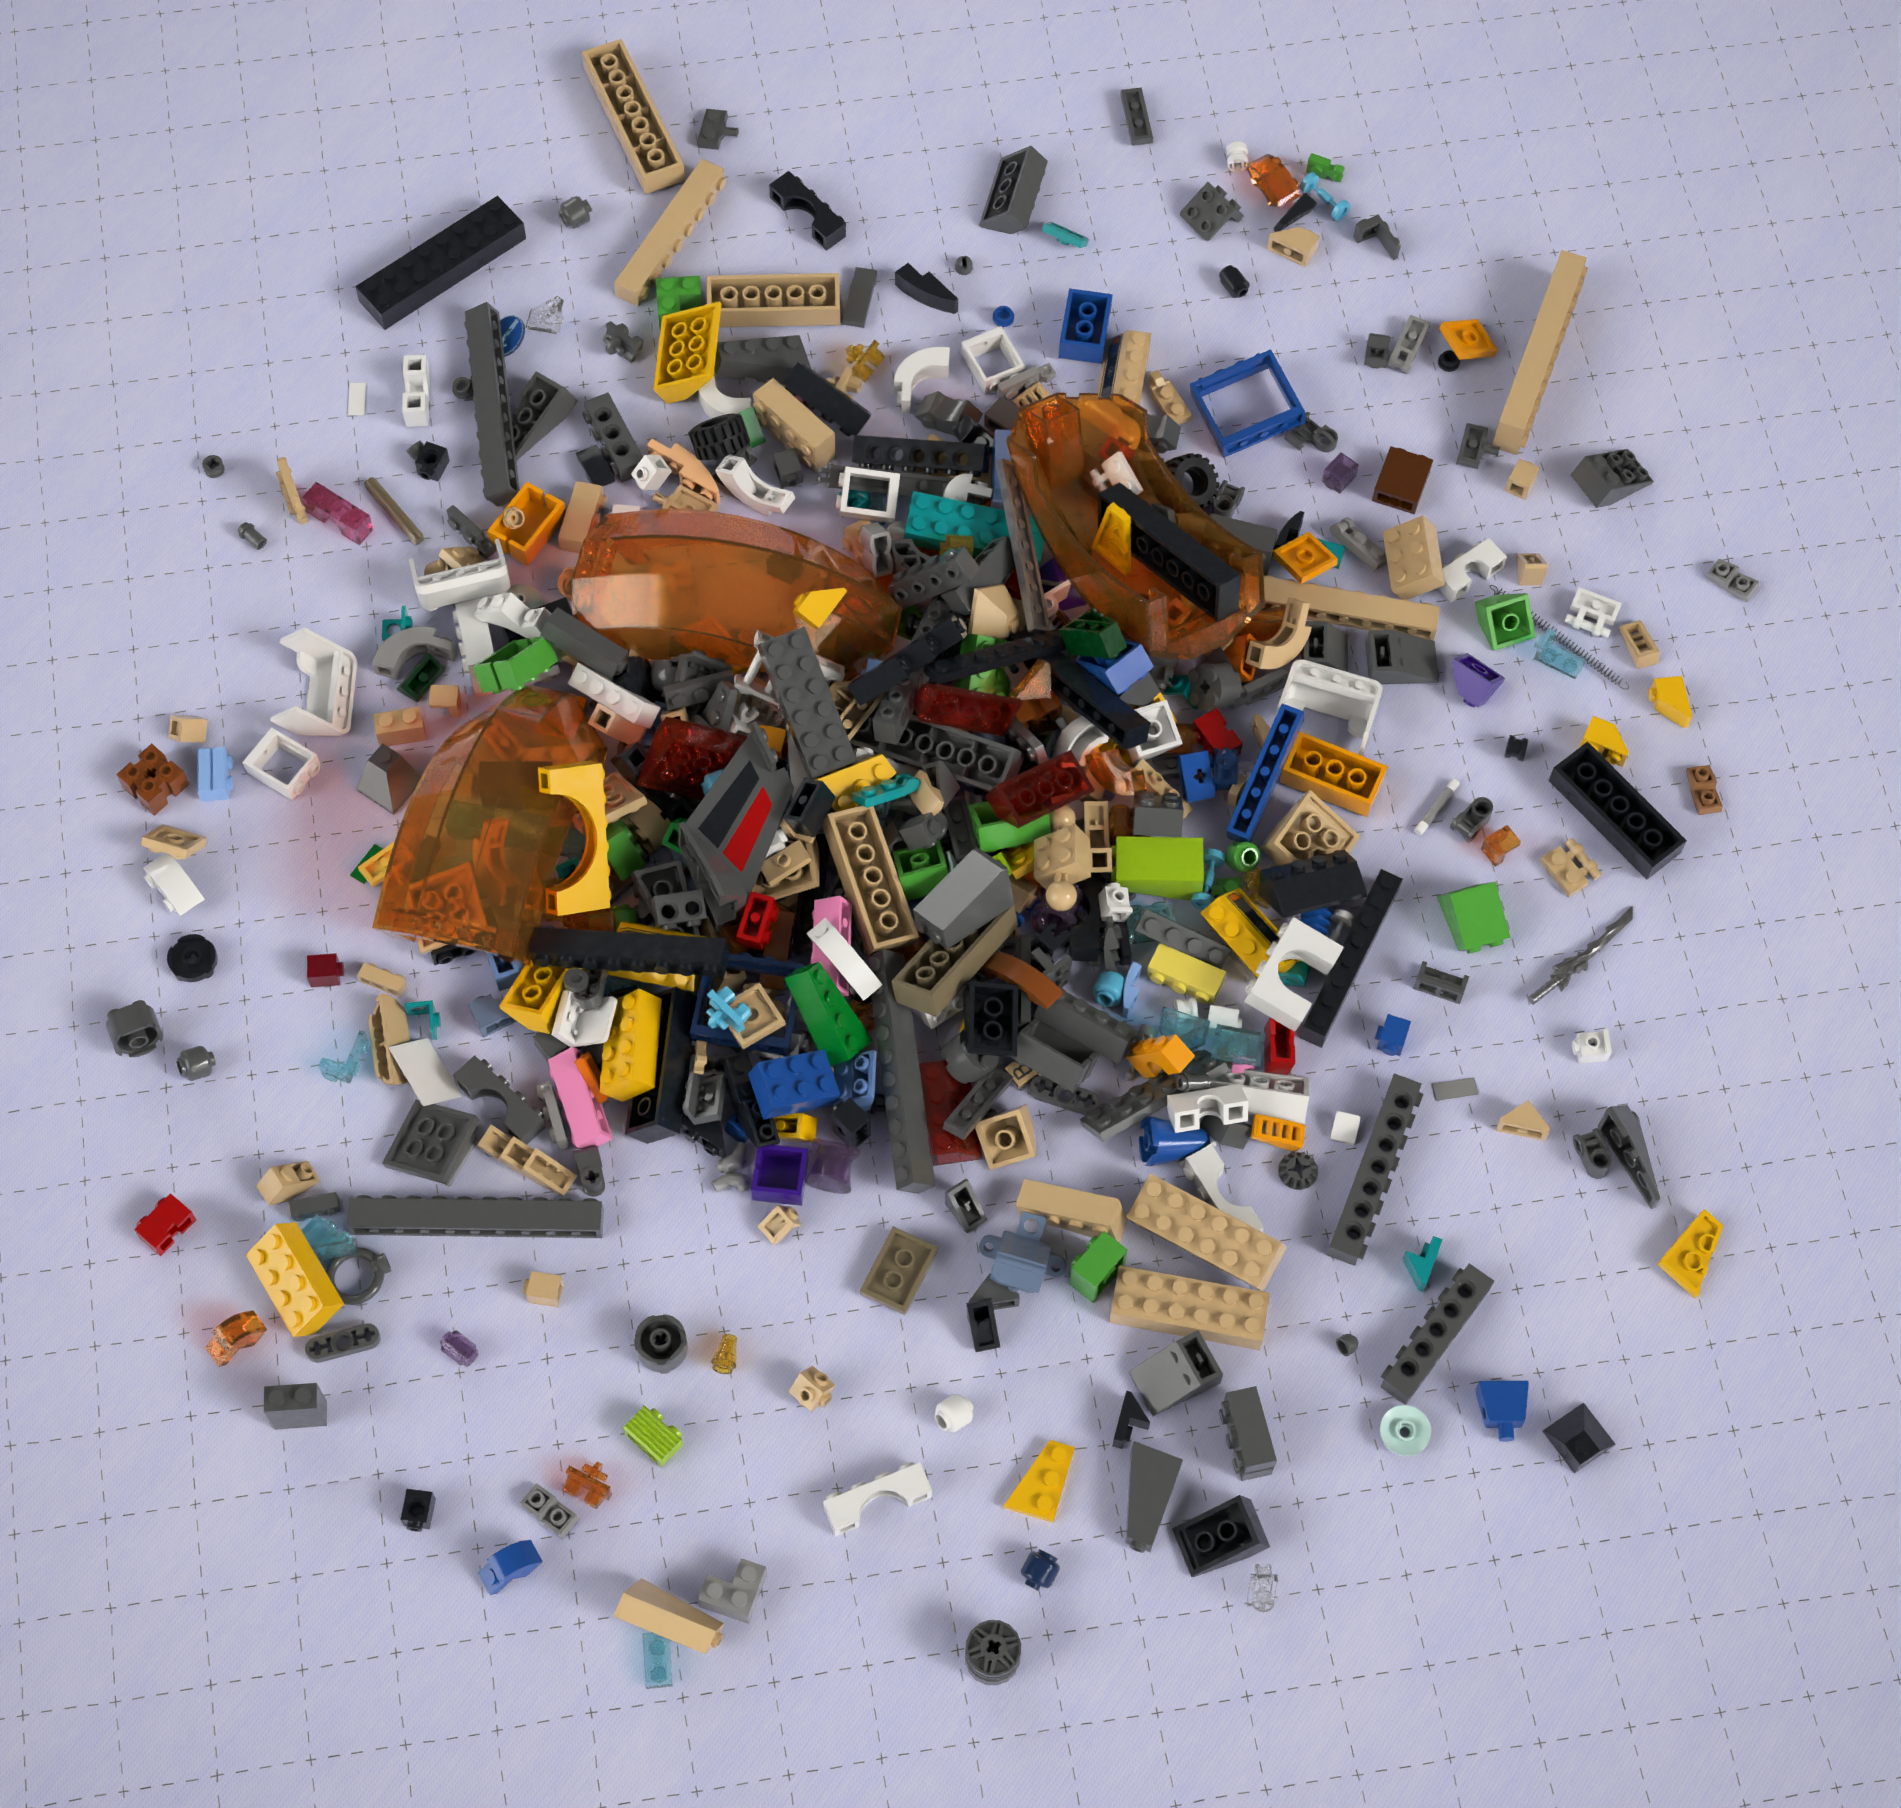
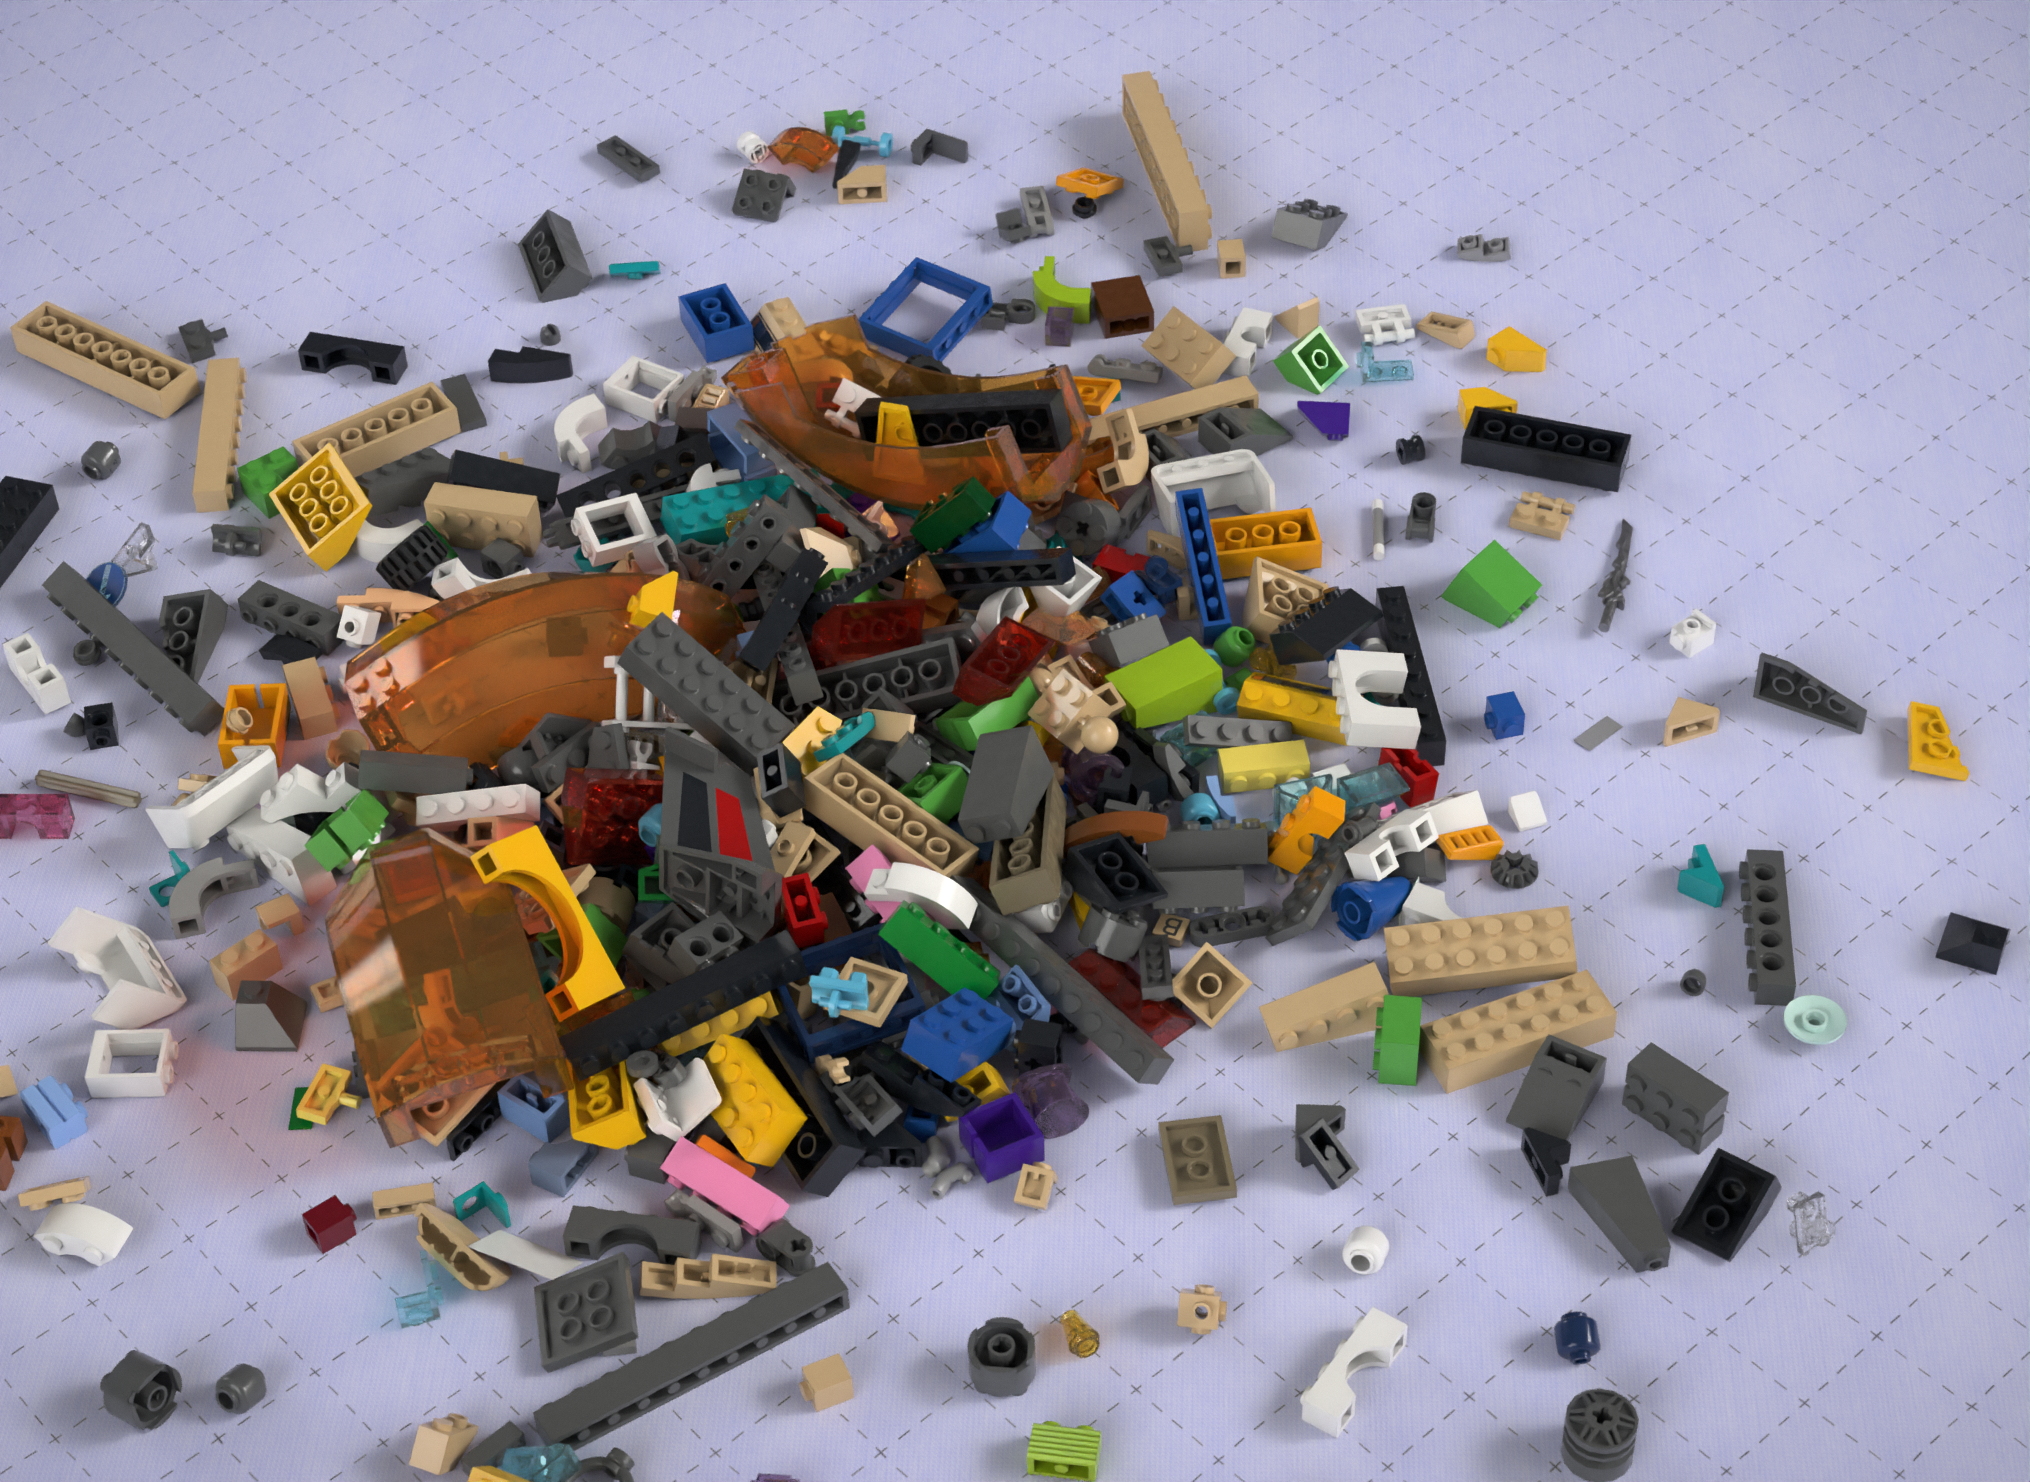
camera: 30 degrees left, 20 degrees down
(182, 950) = (160, 1310): black plate -> none
(421, 677) = (233, 915): dark green slope -> none
(470, 532) = (186, 761): dark grey hinge -> none
(872, 354) = (514, 442): clear yellow hips -> none
(965, 1206) = (1215, 1067): dark grey slope -> none
(1003, 316) = (623, 352): blue plate -> none
(1022, 1257) = (1313, 1075): sand blue piece -> none
(1043, 1483) = (1510, 1266): yellow wing -> none
(1114, 902) = (1146, 730): white brick -> none
(1234, 281) = (831, 235): black brick -> none
(1357, 443) = (1053, 294): none -> lime arch
(1400, 1090) = (1588, 830): dark grey brick -> none
(1440, 984) = (1510, 658): dark grey hinge -> none
(1499, 844) = (1464, 526): clear orange panel -> none
(1503, 1405) = (1883, 950): blue torso -> none
(1570, 646) = (1402, 358): dark grey piece -> none
(1592, 1148) = (1773, 712): dark grey piece -> none
(1703, 790) = (1601, 403): medium nougat slope -> none

